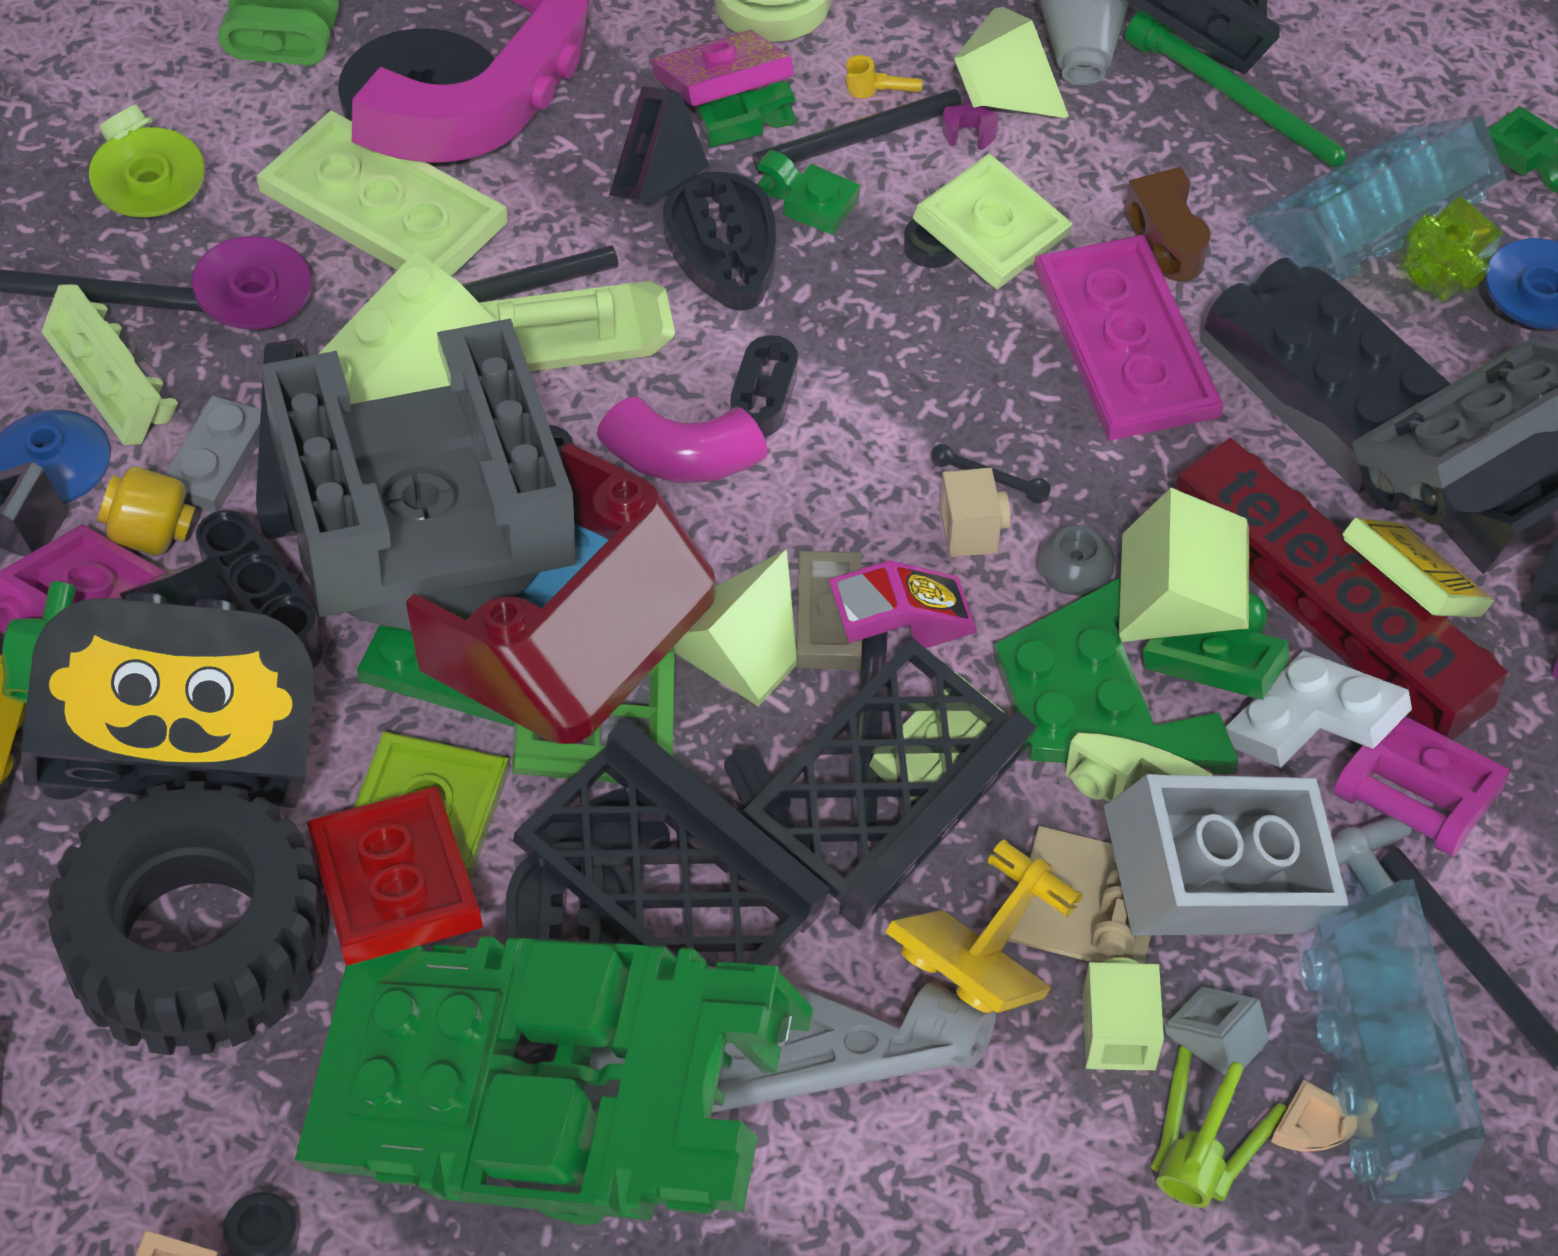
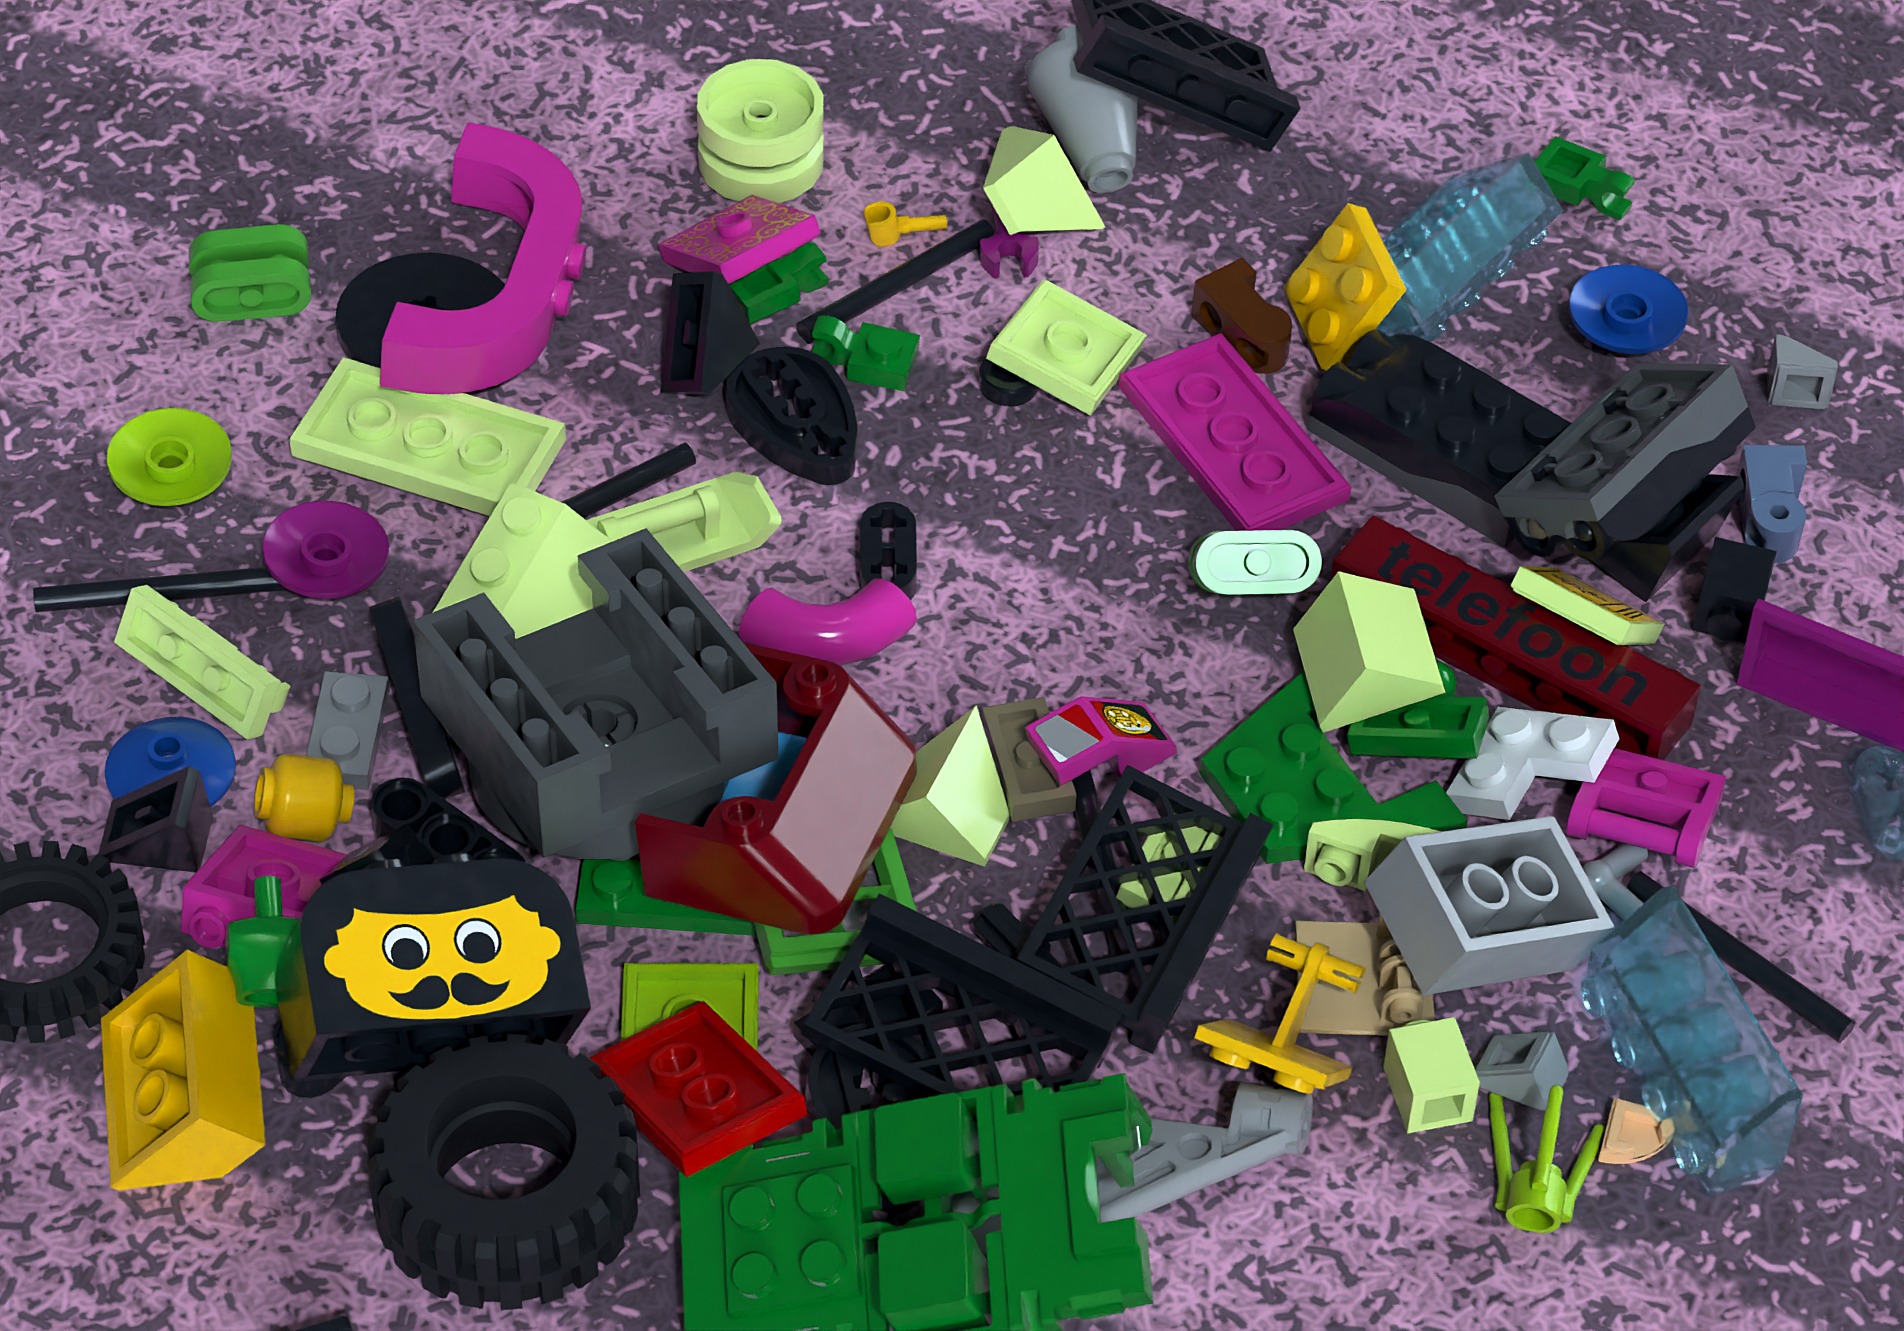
camera: 15 degrees left, 5 degrees down
(123, 122) = (123, 412): yellowish green plate -> none
(972, 512) = (1139, 637): tan plate -> none
(1036, 490) = (1191, 605): black hinge -> none
(1076, 576) = (1253, 664): dark grey plate -> none
(1103, 461) = (1254, 562): none -> brick
(1152, 35) = (1167, 127): green piece -> none
(1270, 210) = (1344, 286): none -> yellow plate
(1451, 249) = (1531, 292): clear neon green brick -> none

